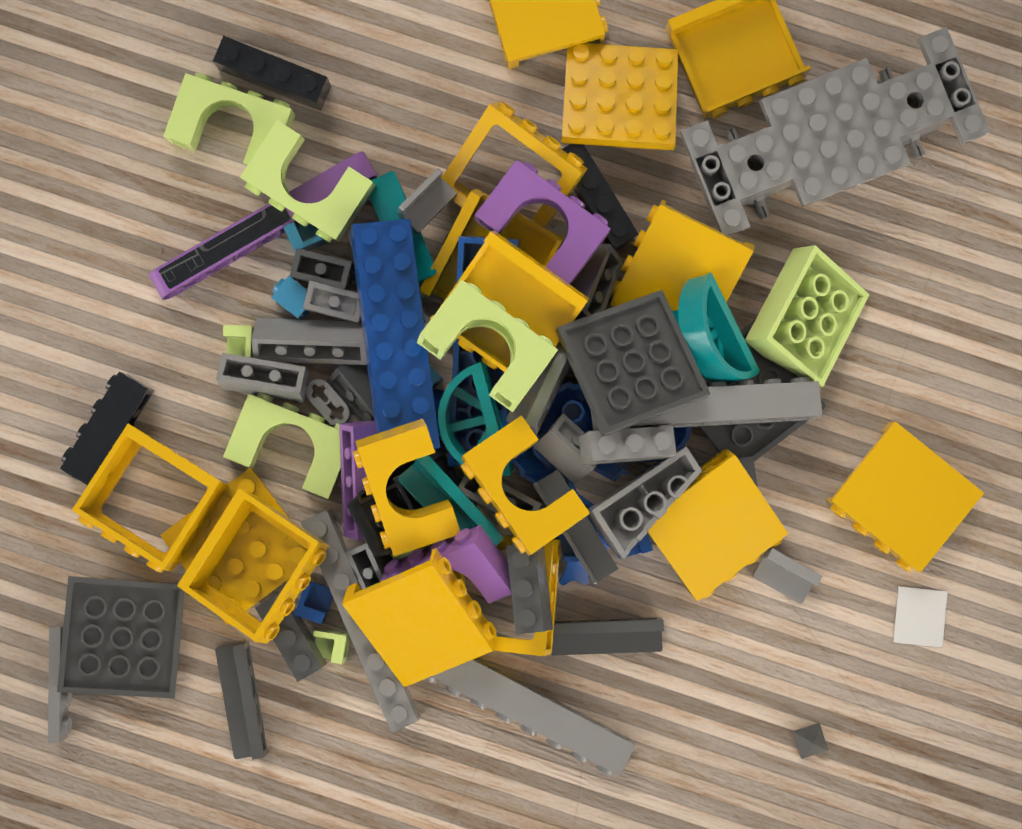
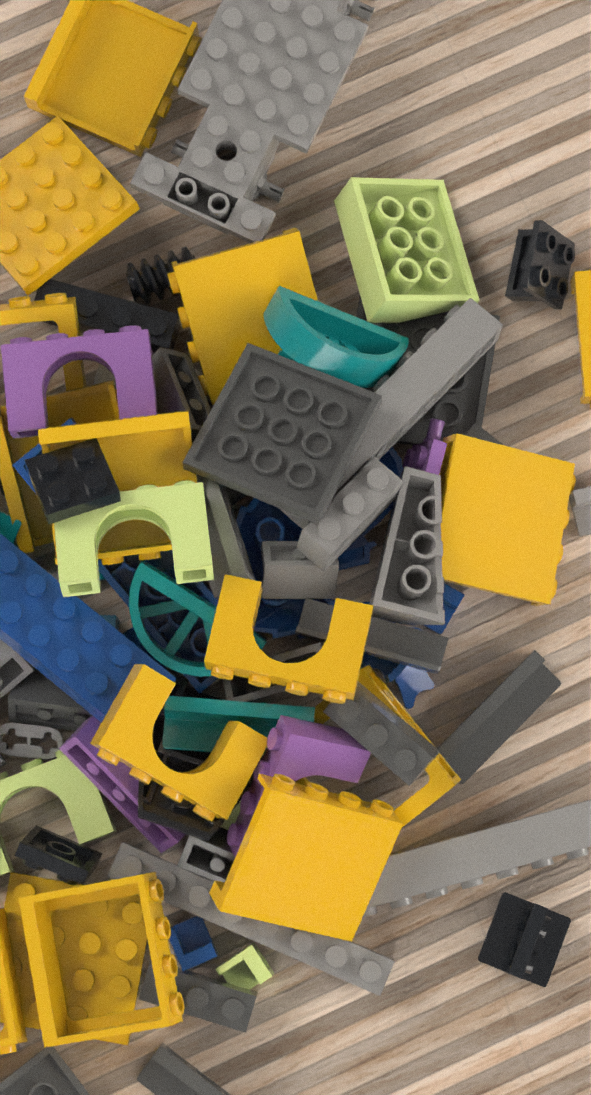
camera: 45 degrees left, 5 degrees down
(283, 484) = (58, 854): none -> black plate
(483, 279) = (72, 480): none -> black plate
(503, 775) = (524, 939): none -> black bracket
(645, 199) = (154, 278): none -> black piece
(708, 450) = (430, 453): none -> medium lavender plate
(878, 398) = (540, 266): none -> black bracket

